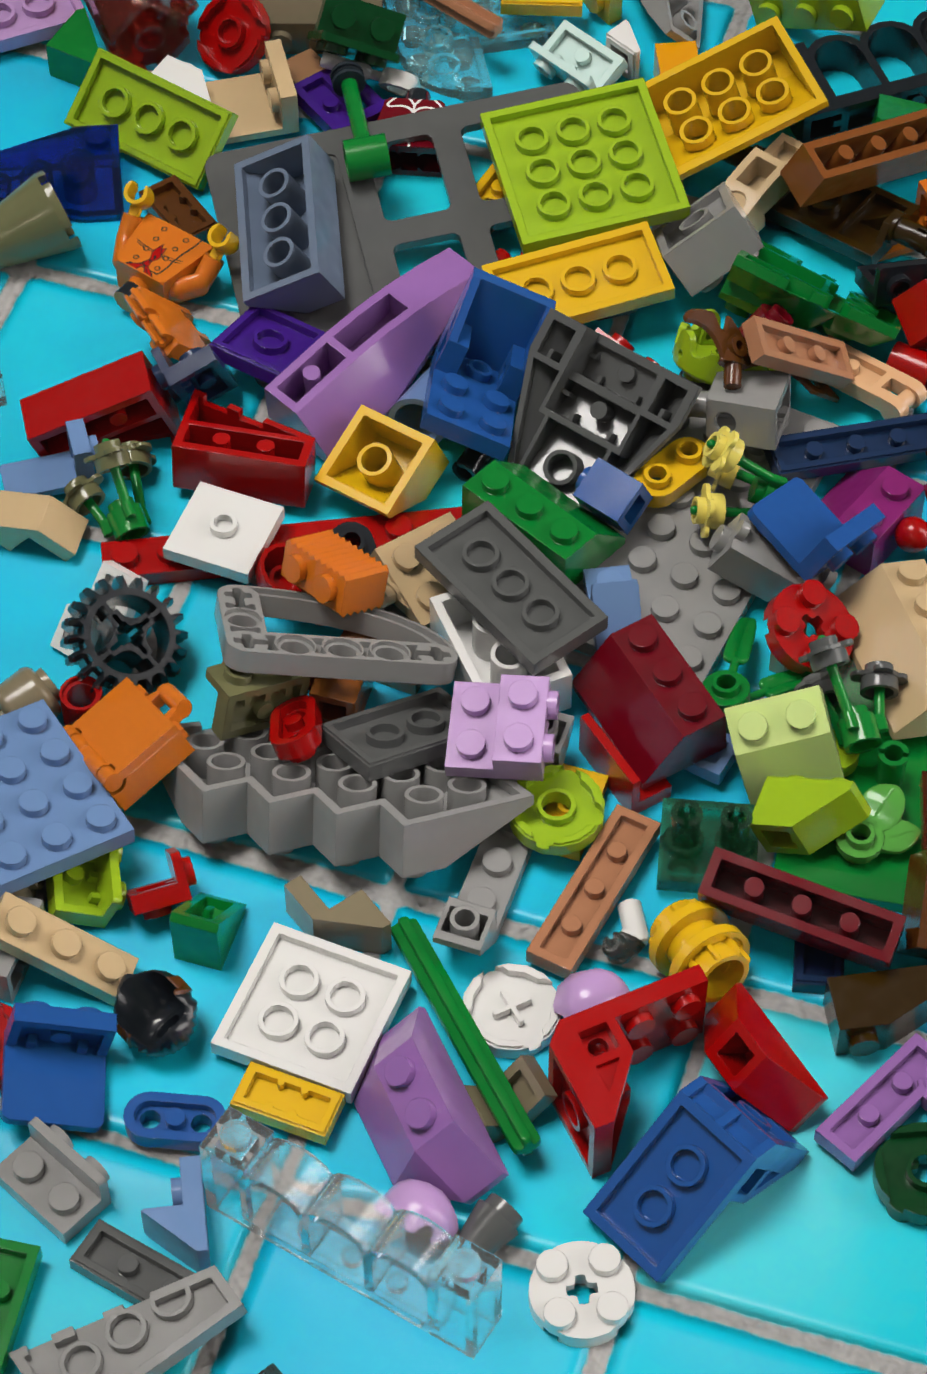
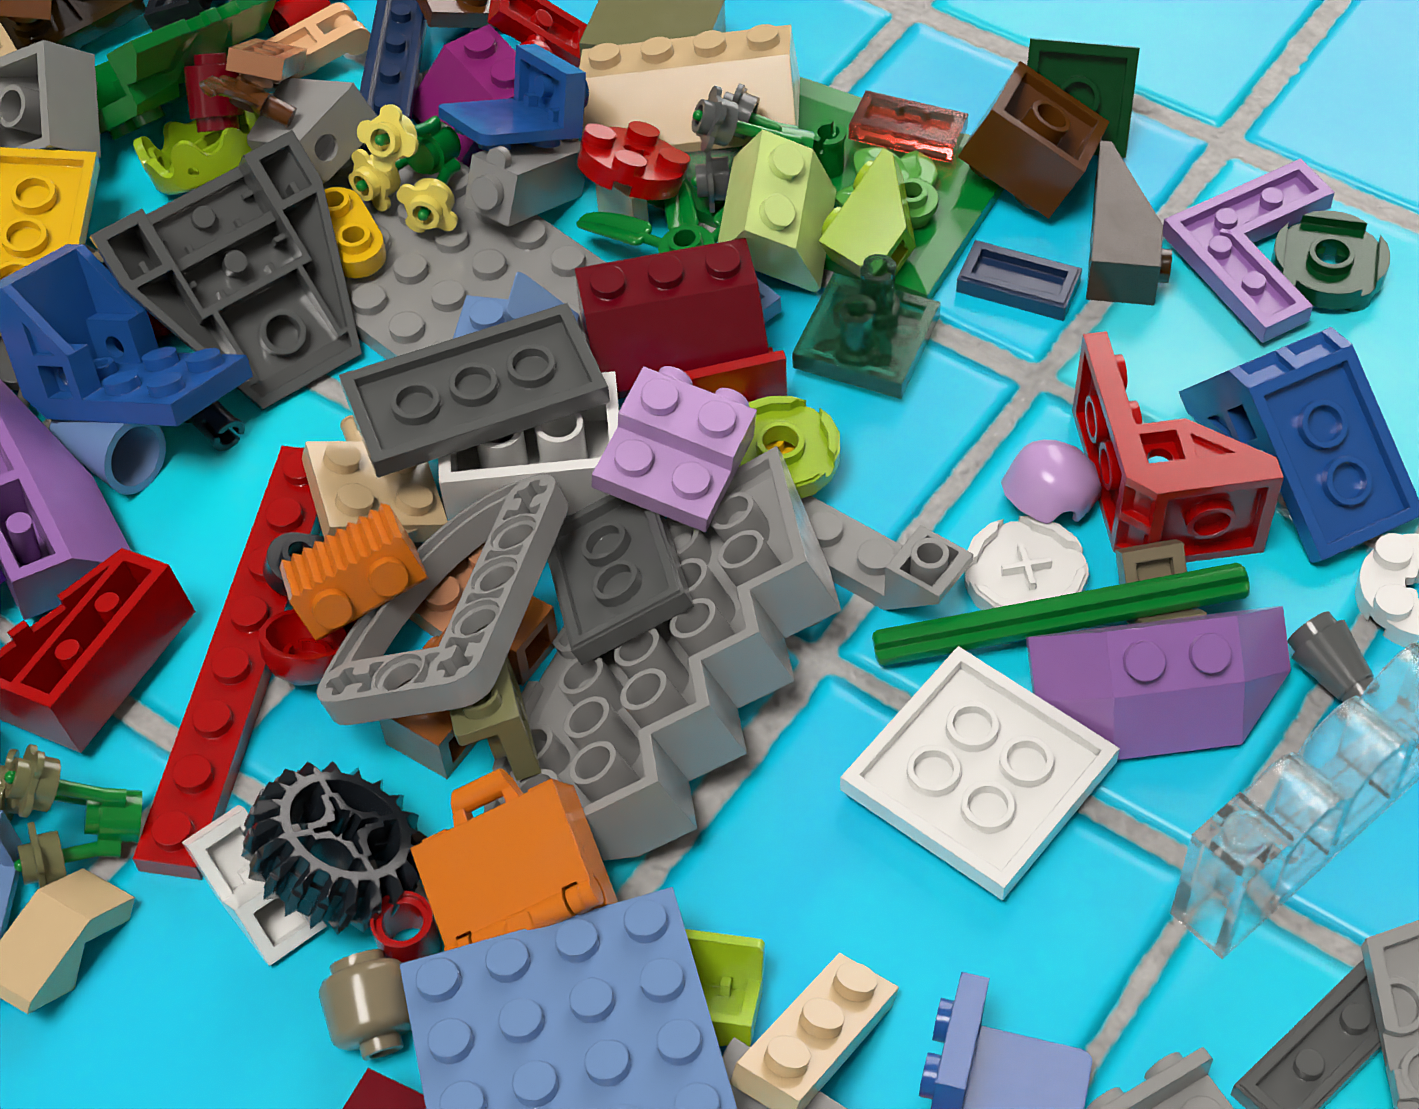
camera: 70 degrees left, 0 degrees up
(155, 1012) = (944, 933): black hair -> none
(156, 898) = (748, 889): red bracket -> none
(176, 1117) = (1105, 964): blue plate -> none
(183, 1225) = (1275, 970): medium blue slope -> none
(205, 929) = (818, 857): green slope -> none
(223, 532) = (206, 696): white plate -> none
(288, 1103) = (1106, 826): yellow plate -> none
(296, 729) = (587, 670): red plate -> none
(351, 923) = (866, 691): dark tan slope -> none
(382, 464) = (185, 499): yellow slope -> none
(424, 1200) = (1304, 703): lavender hair -> none
(544, 515) = (311, 373): green slope -> none
(593, 892) = (901, 454): nougat plate -> none
(612, 495) = (366, 279): brick -> none
(633, 936) = (960, 433): arm -> none
(700, 934) = (1016, 365): yellow piece -> none
(759, 1060) = (1175, 349): red slope -> none
(802, 910) = (1004, 255): dark red brick -> none

